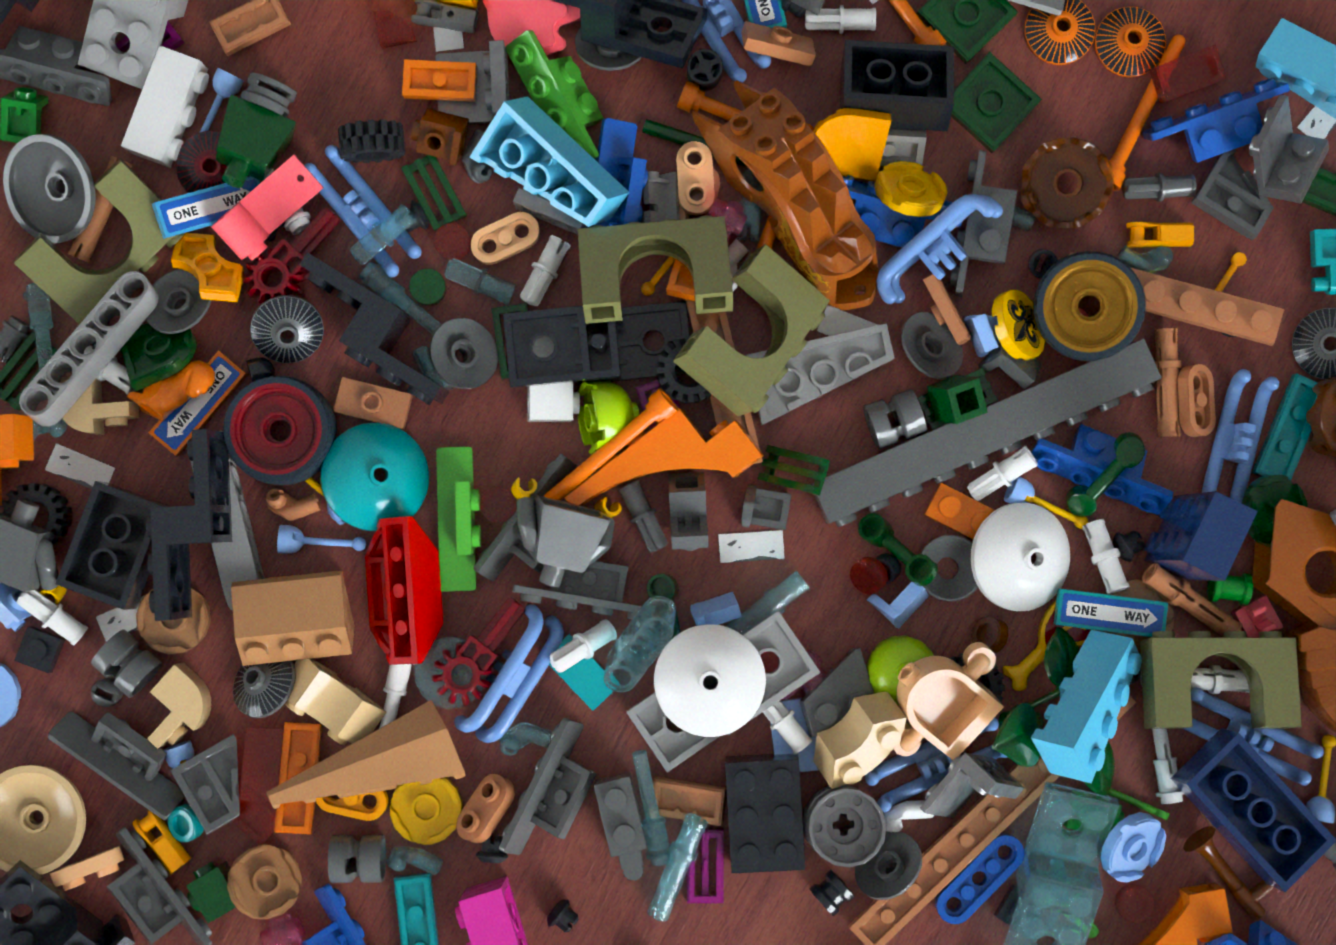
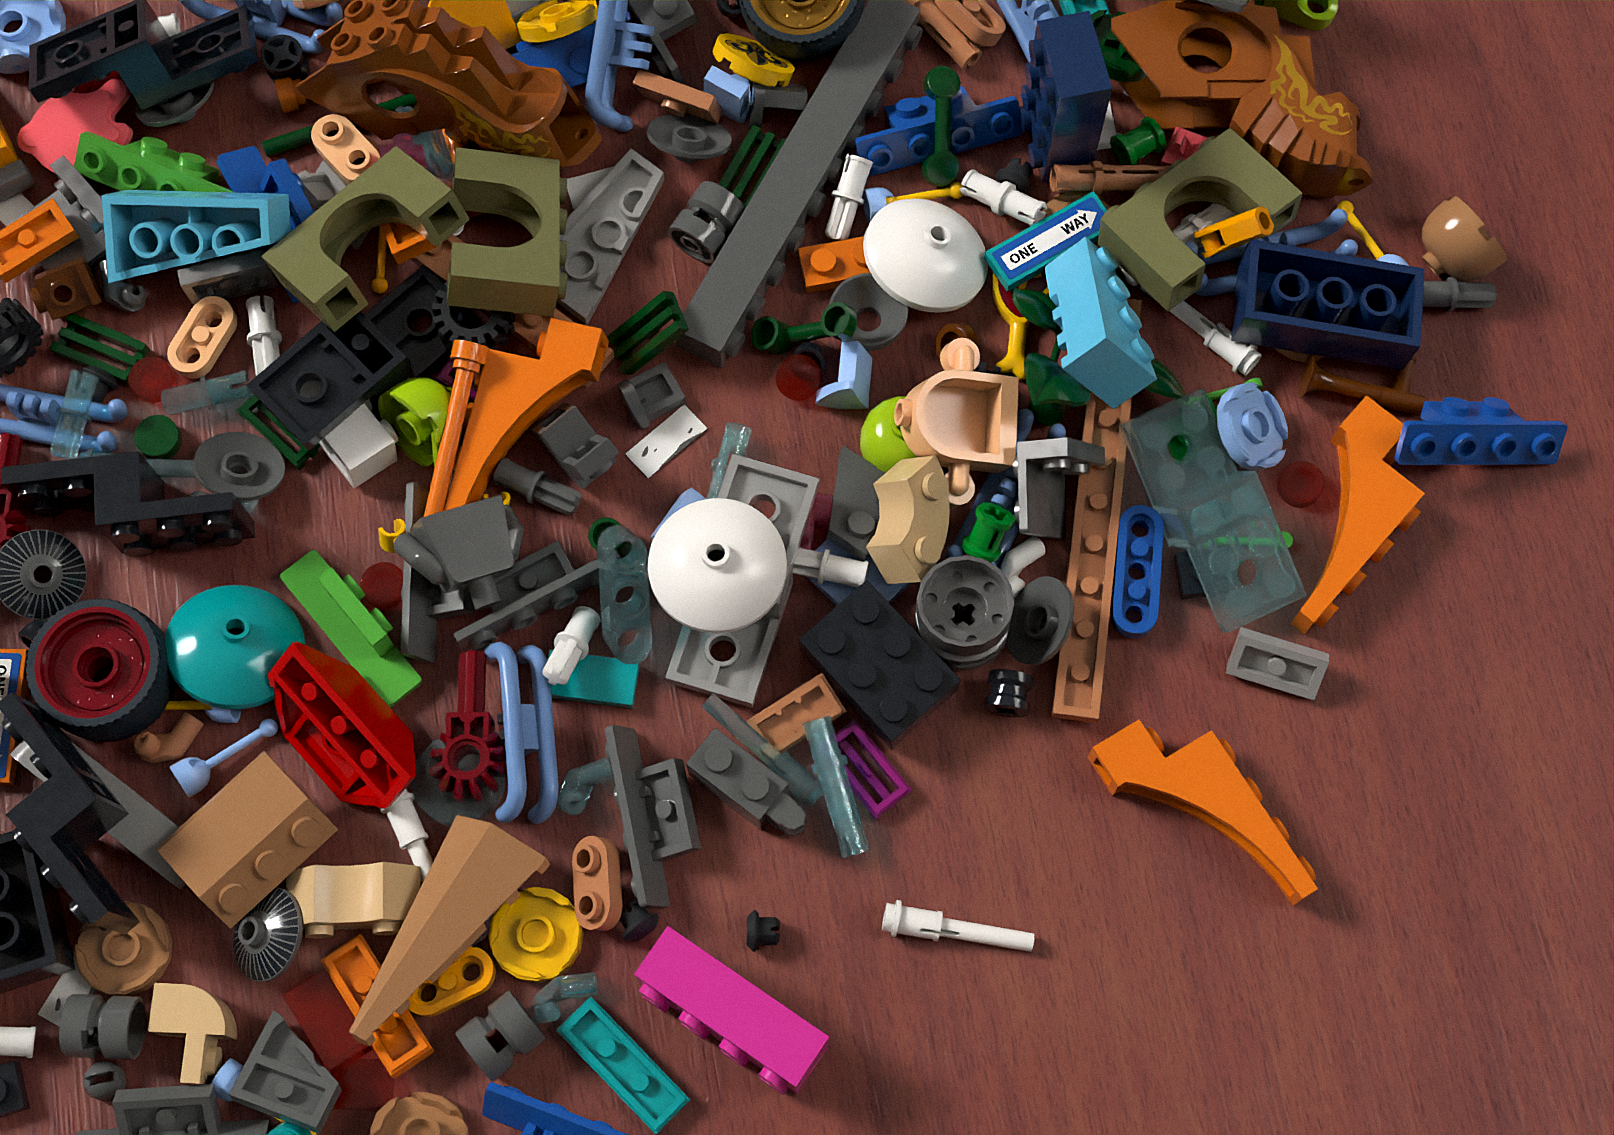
camera: 35 degrees left, 15 degrees down
(373, 403) = (172, 585): nougat plate -> none
(901, 786) = (988, 532): none -> green bush
(957, 399) = (748, 155): dark green brick -> none
(1234, 712) = (1235, 231): none -> light orange bar

